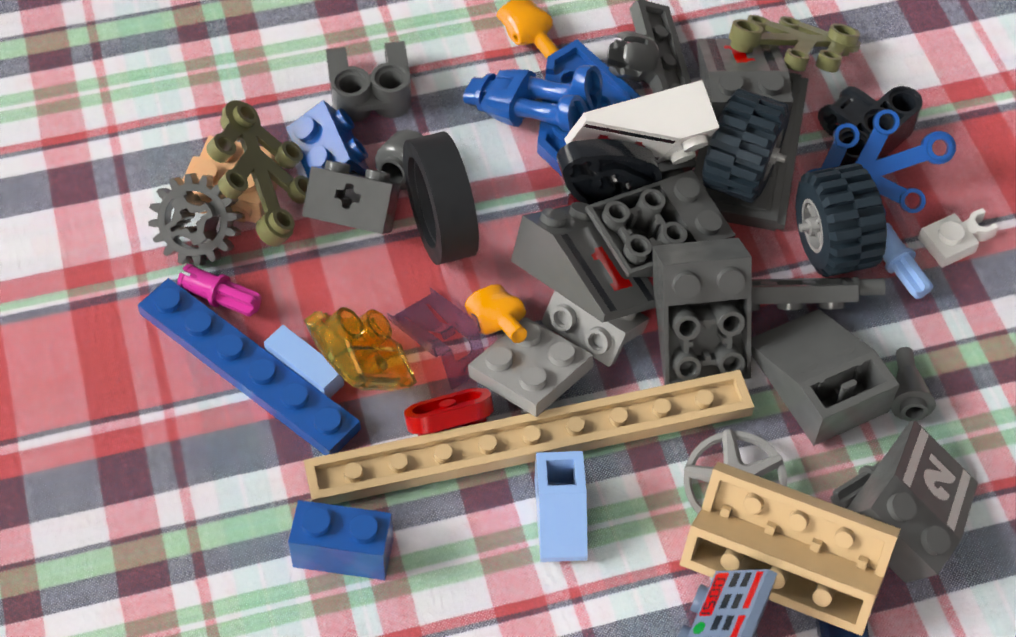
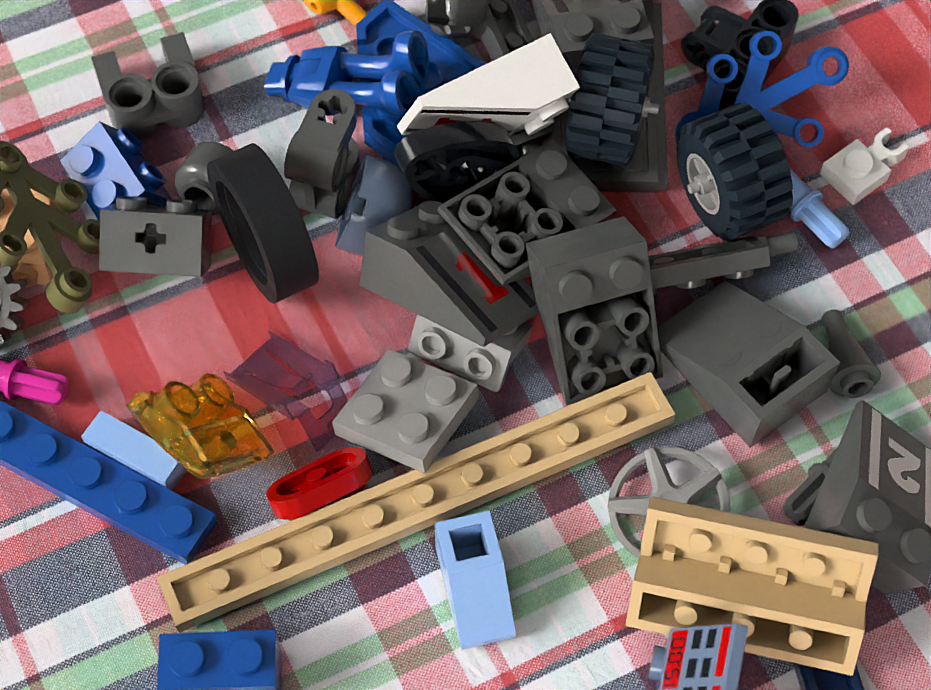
camera: 10 degrees left, 5 degrees up
(498, 312) = (355, 350): light orange piece -> none
(499, 154) = (324, 155): none -> dark grey piece
(539, 189) = (377, 196): none -> sand blue cylinder

